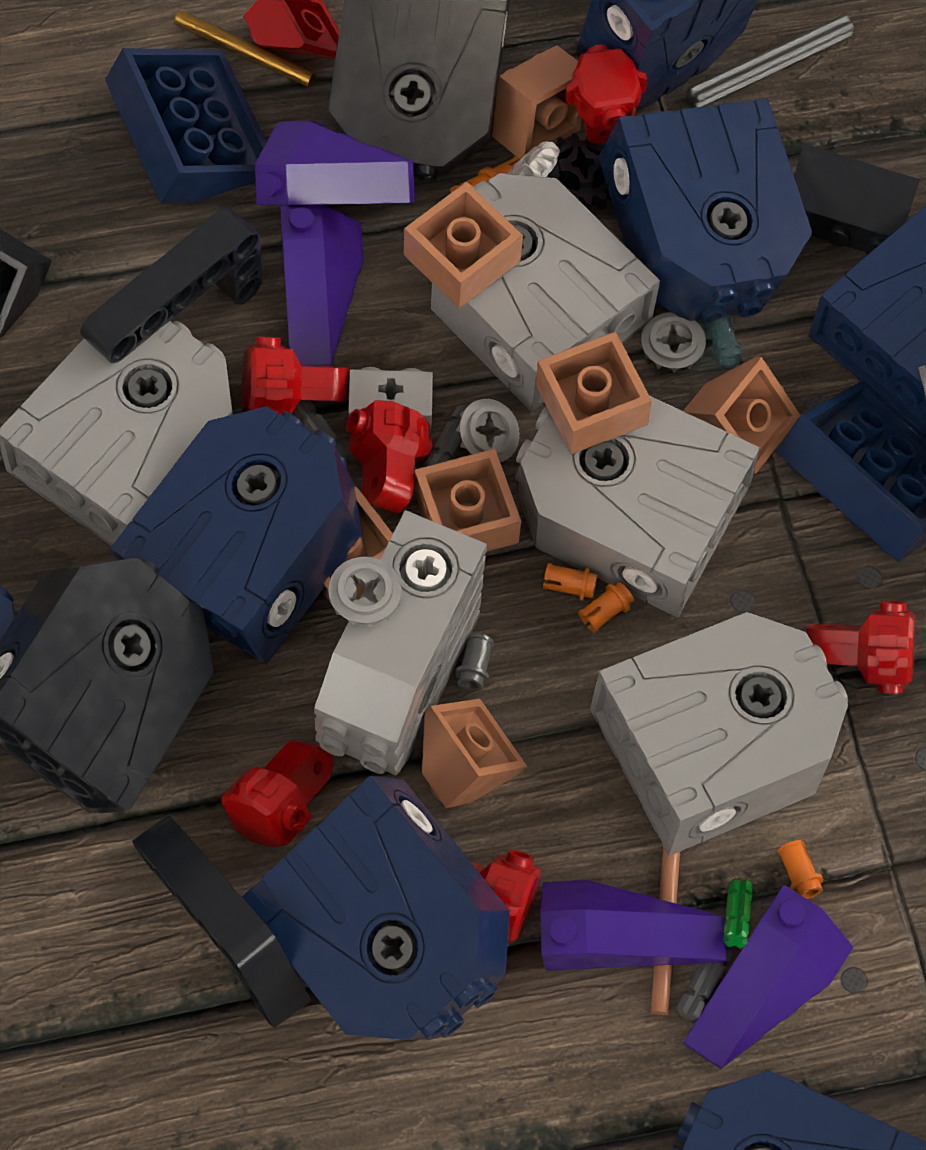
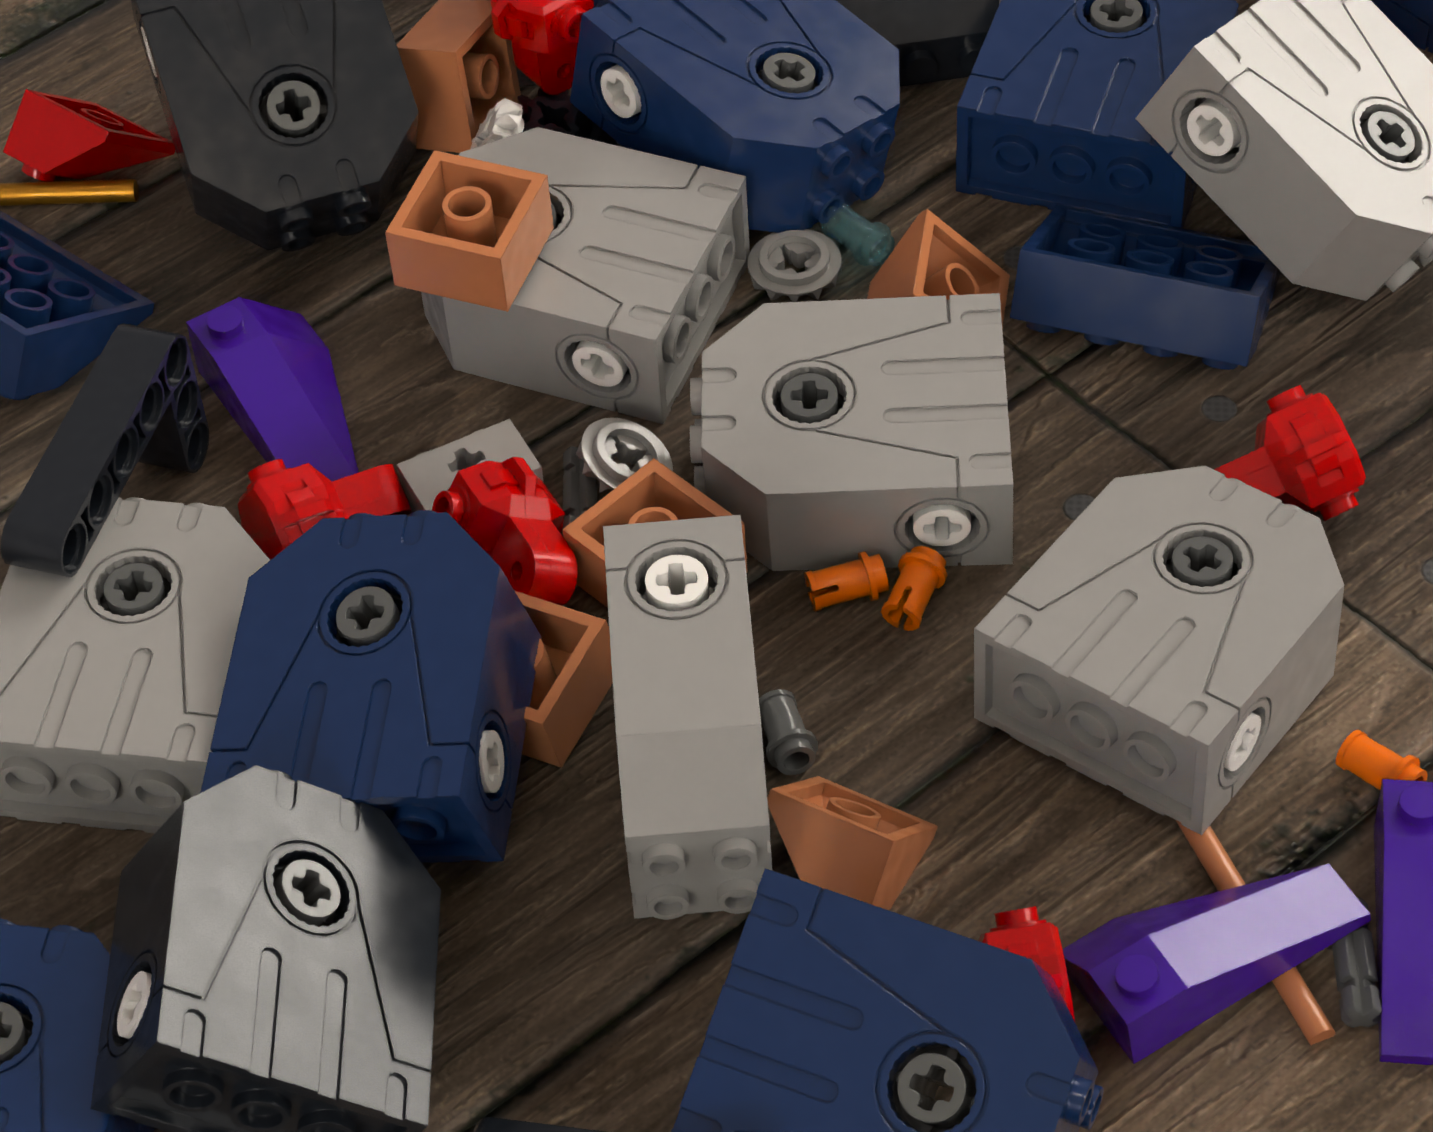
camera: 20 degrees left, 15 degrees down
(272, 800) = (621, 1023): red piece -> none
(319, 166) = (232, 247): dark purple wedge -> none
(367, 573) = (600, 618): light grey gear -> none
(593, 392) = (751, 314): nougat brick -> none
(738, 913) = (1344, 851): green axle -> none

